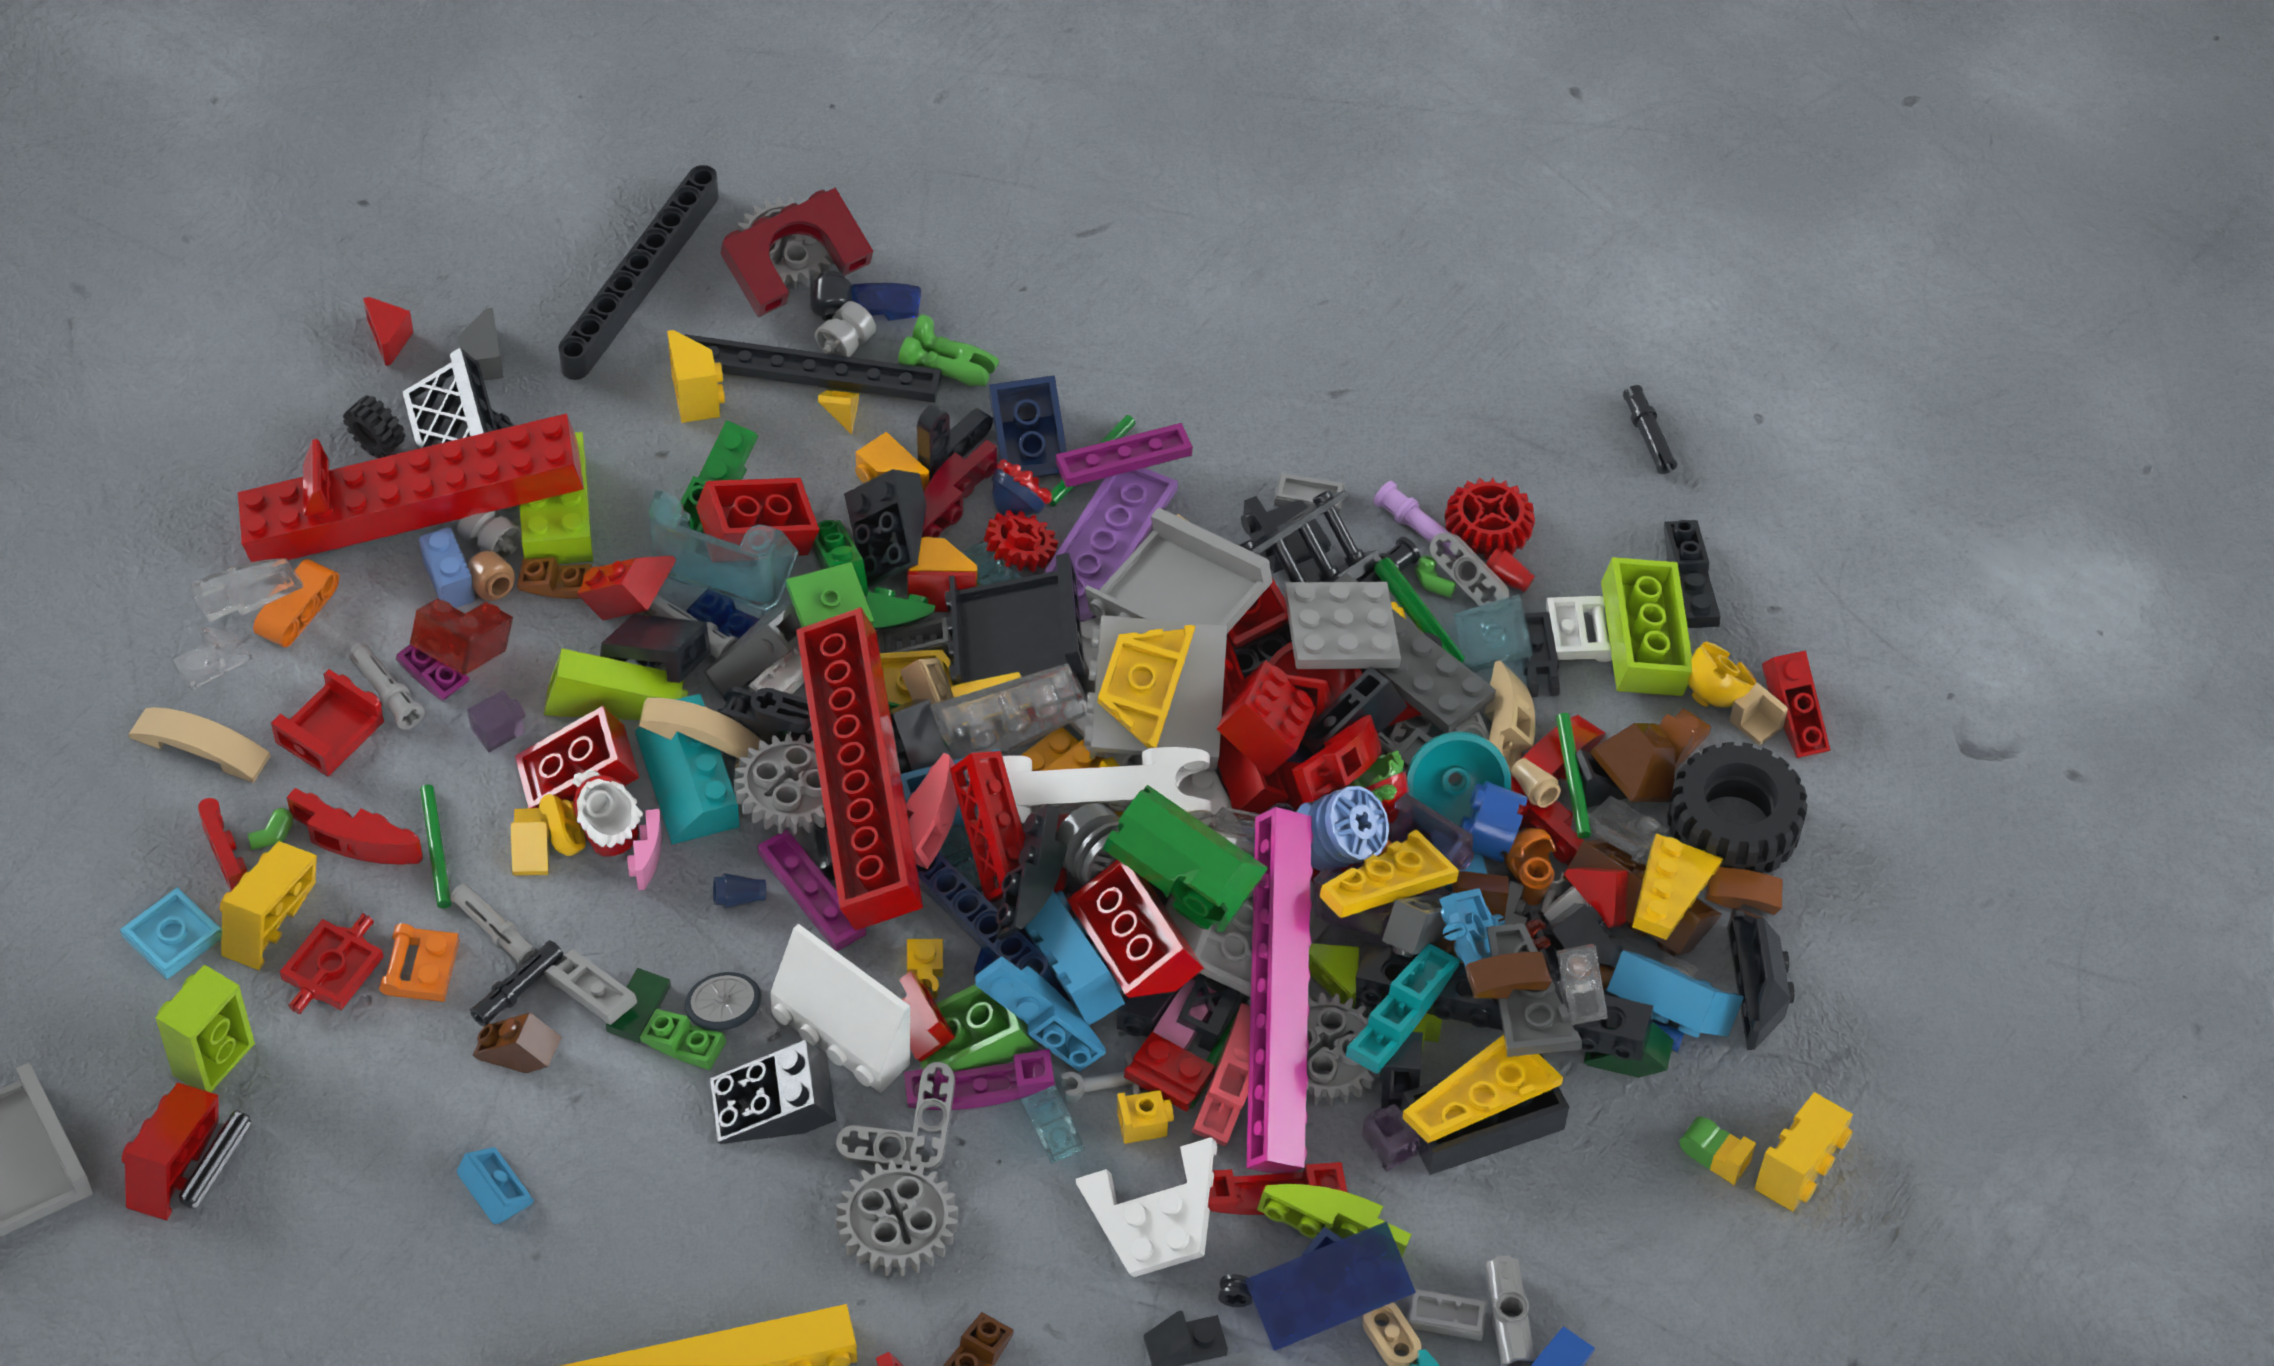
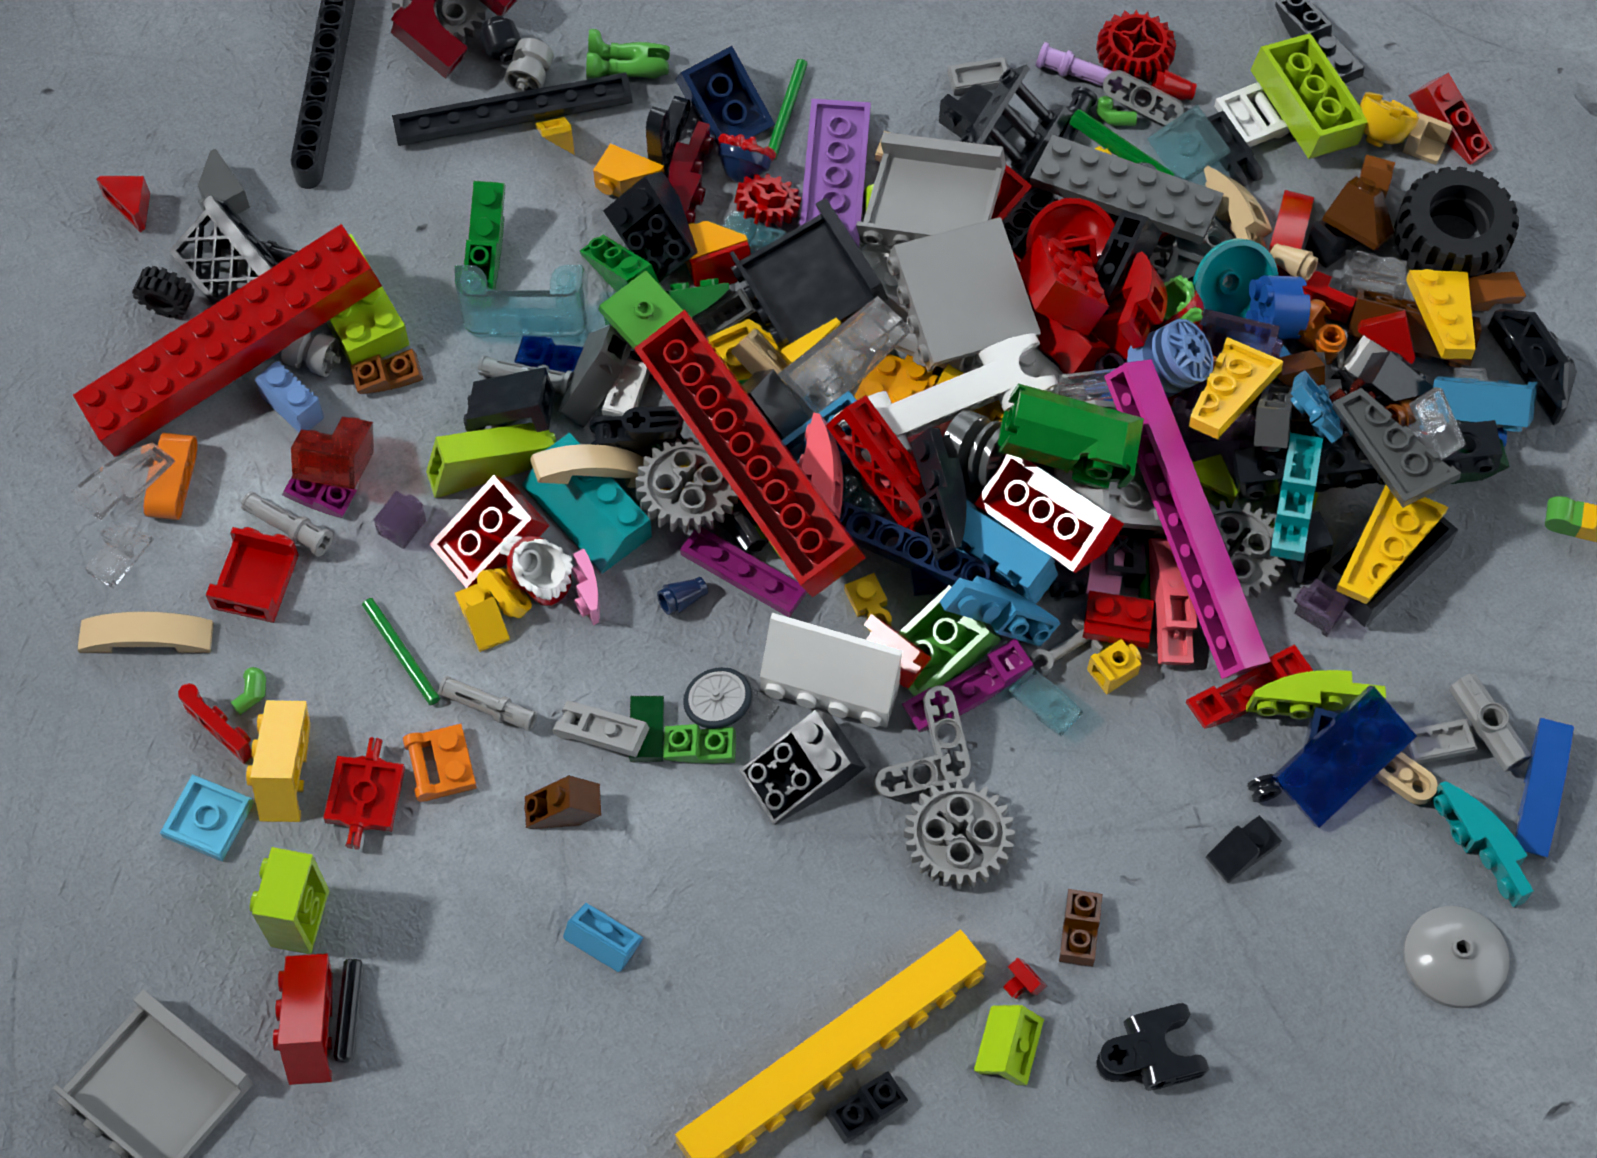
camera: 20 degrees left, 10 degrees up
(315, 480) = (142, 361): red slope -> none
(362, 838) = (336, 668): red slope -> none
(491, 575) = (333, 390): medium nougat head -> none
(505, 993) = (529, 761): black pin -> none
(624, 585) = (456, 359): red slope -> none
(695, 378) = (422, 151): yellow slope -> none
(735, 506) = (532, 253): red brick -> none
(891, 299) = (549, 25): clear blue slope -> none
(1124, 455) = (818, 95): magenta plate -> none
(1144, 680) = (957, 289): yellow wing -> none
(1159, 1226) = (1179, 757): white wing -> none
(1341, 625) = (1078, 181): light grey plate -> none
(1508, 972) = (1375, 437): reddish brown slope -> none
(1573, 776) = (1319, 244): green bar -> none

